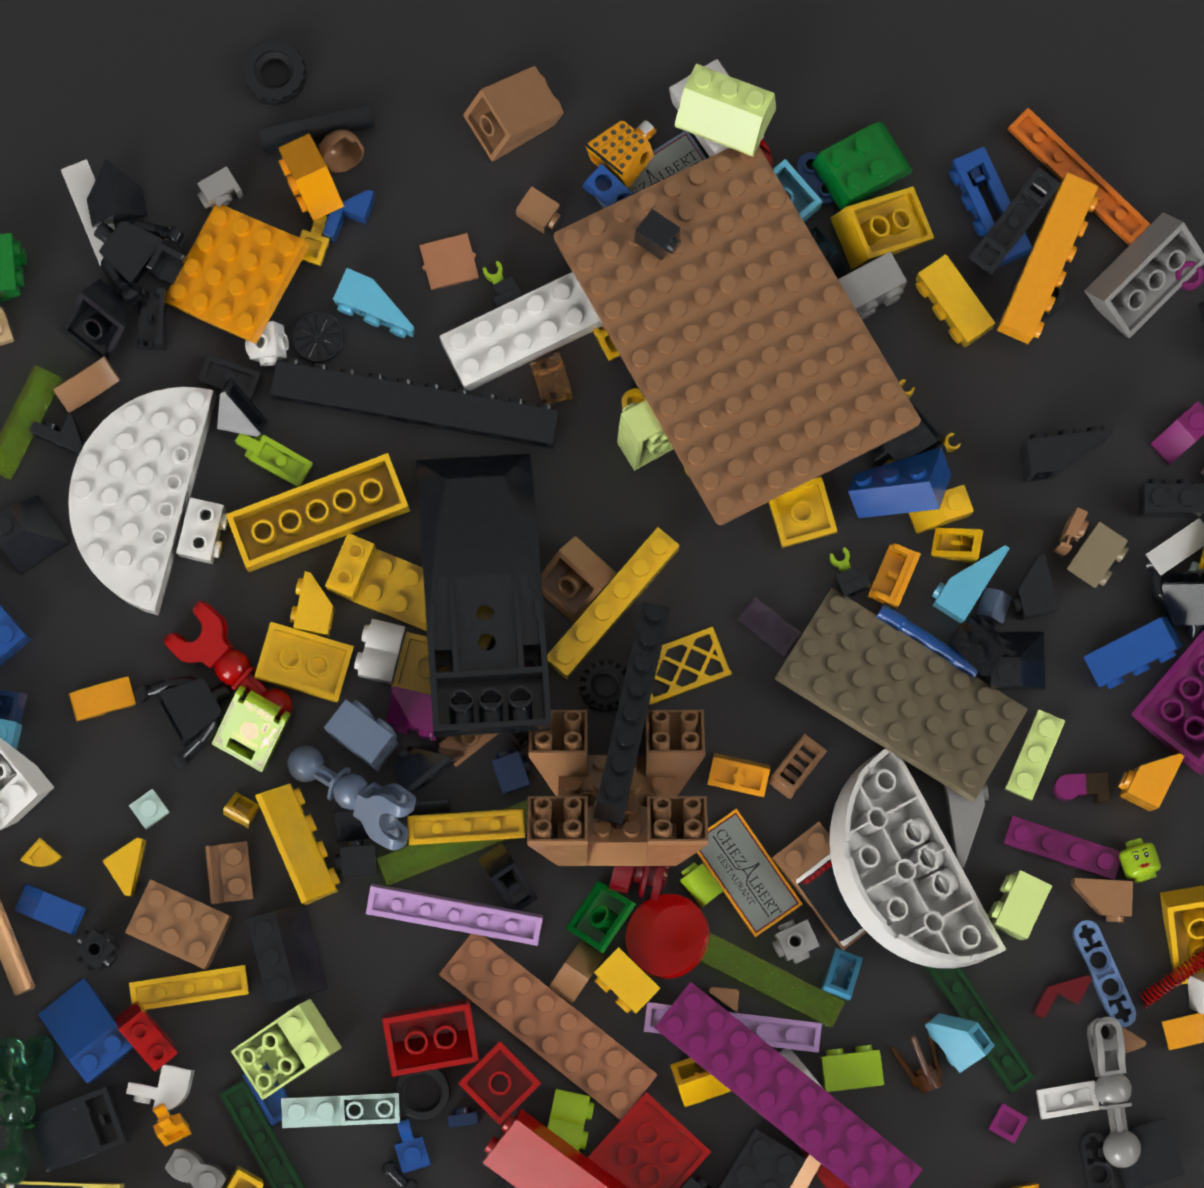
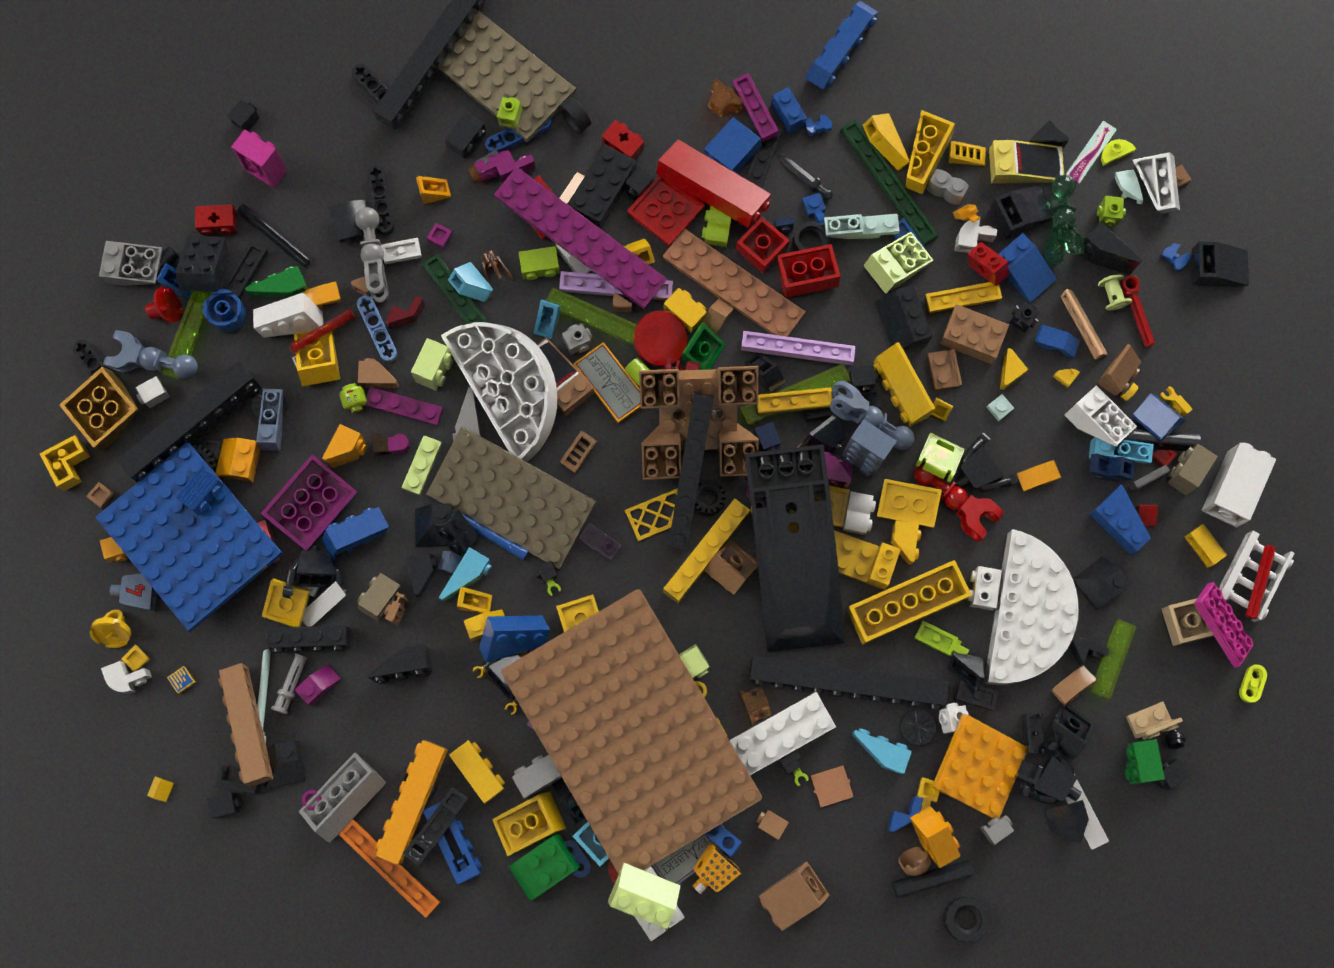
camera: 175 degrees right, 5 degrees down
(658, 235) = (689, 797): black brick -> none
(738, 774) = (617, 443): light orange hinge -> none
(894, 575) = (517, 578): light orange hinge -> none

